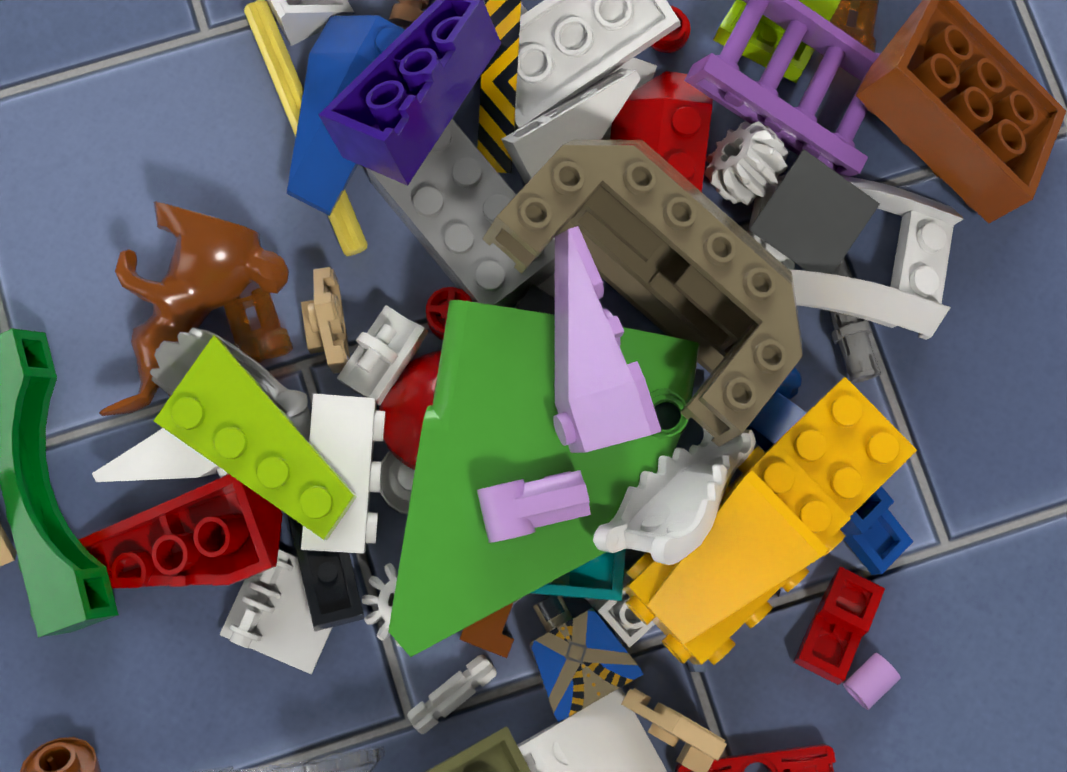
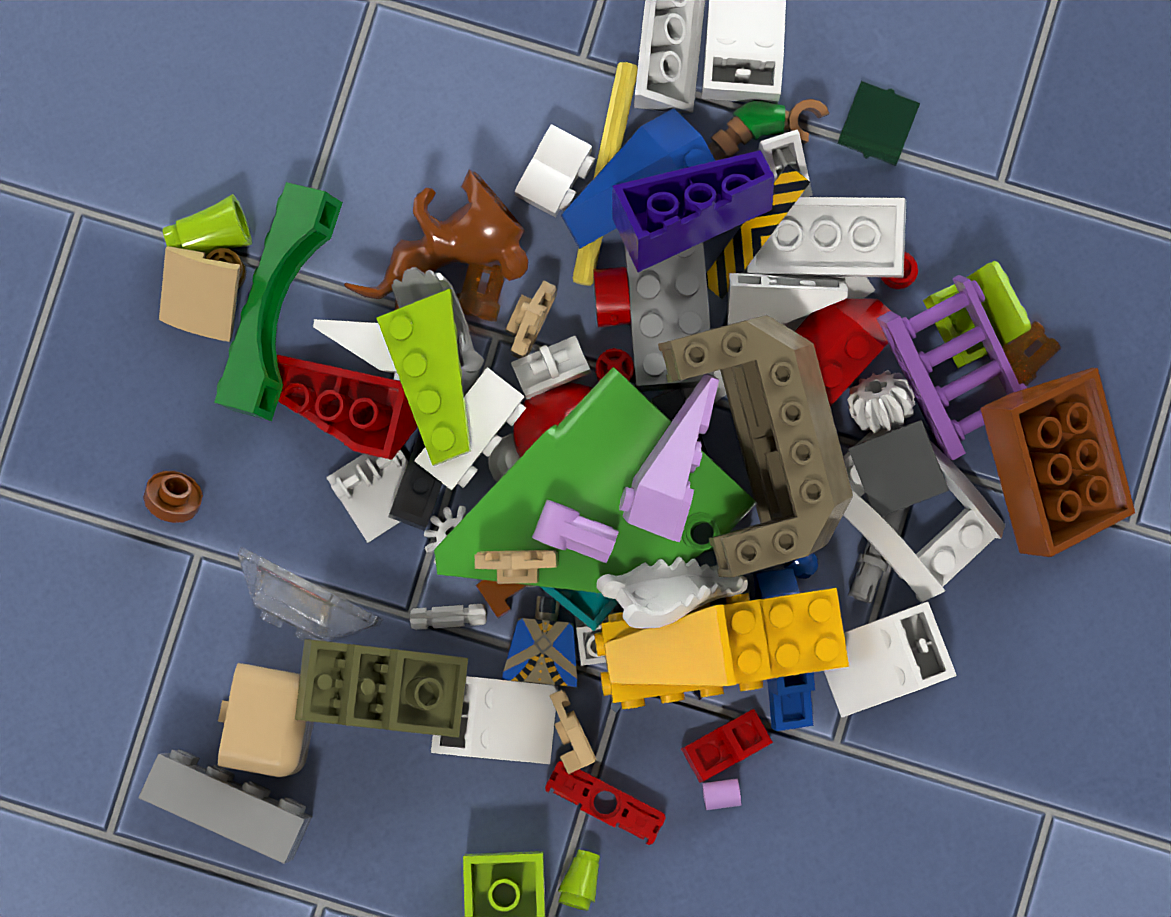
camera: 40 degrees right, 5 degrees up
(249, 155) = (554, 171): none -> white brick
(397, 240) = (612, 297): none -> red piece
(493, 585) = (517, 565): none -> tan plate
(950, 413) = (890, 660): none -> white slope

